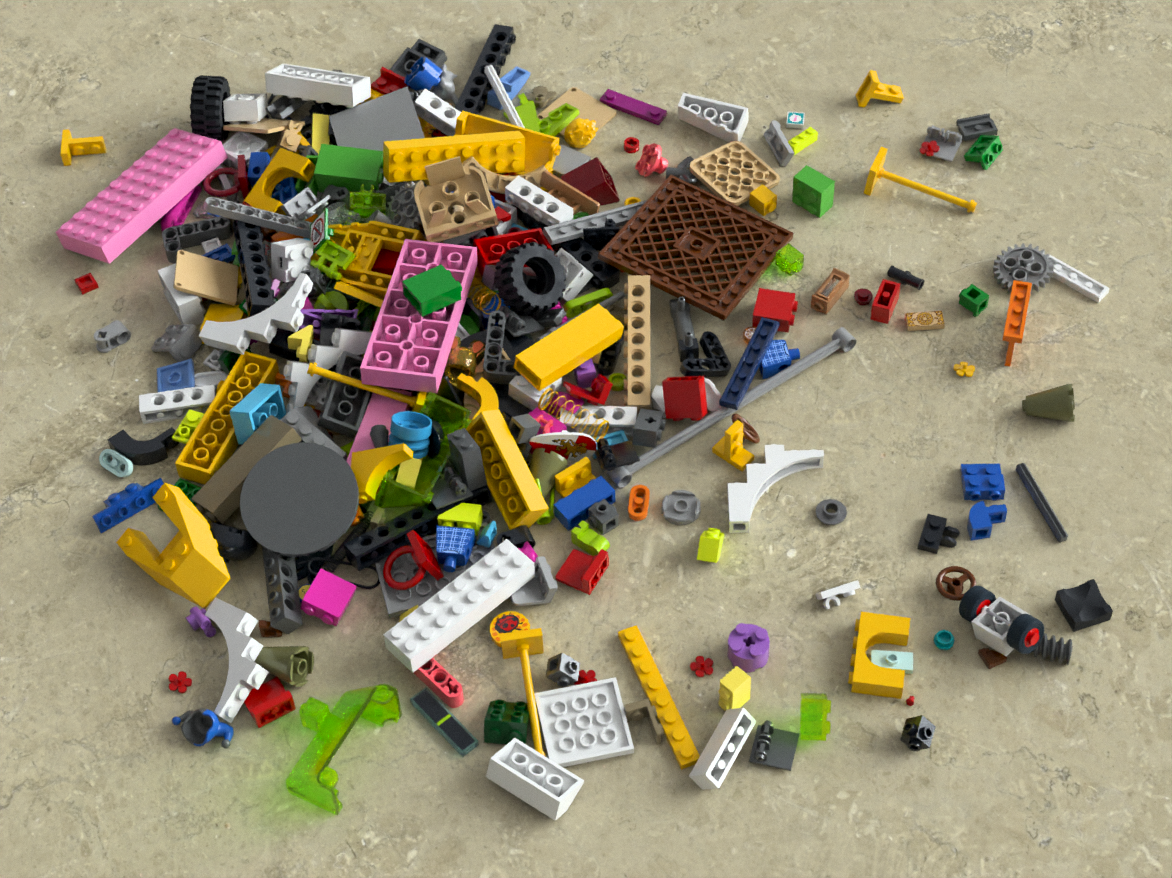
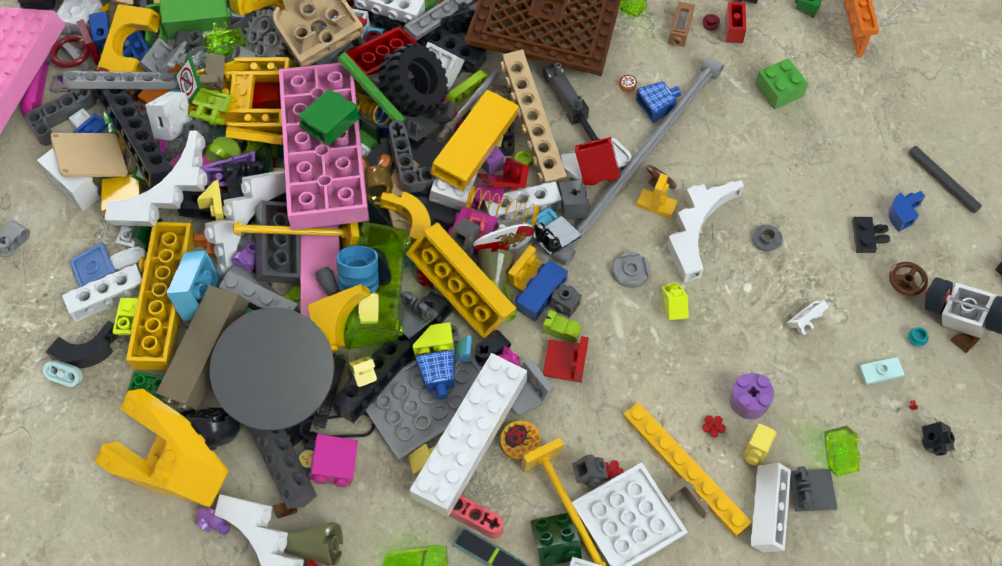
camera: 20 degrees left, 10 degrees up
(126, 504) = (90, 412): blue bracket -> none
(179, 340) = (82, 226): light grey bracket -> none
(314, 402) = (246, 257): none -> medium lavender plate
(345, 231) = (214, 73): none -> dark tan bracket
(382, 524) = (363, 370): none -> light yellow slope
(422, 556) = (413, 393): red tile -> none
(467, 459) = (421, 279): dark grey brick -> none
(484, 275) = (370, 87): none -> bright green axle
(638, 504) = (591, 277): orange plate -> none
(718, 365) = (609, 118): black beam -> none
(749, 364) = (641, 112): dark blue tile -> none
(775, 306) = (641, 54): red brick -> none
(868, 677) = (865, 392): yellow arch -> none
(908, 371) = (781, 83): none -> bright green brick
(924, 320) = (773, 32): tile -> none
(963, 369) = (825, 69): yellow plant -> none
(982, 482) = (887, 172): blue plate -> none
(1052, 403) = (919, 83): olive cone -> none

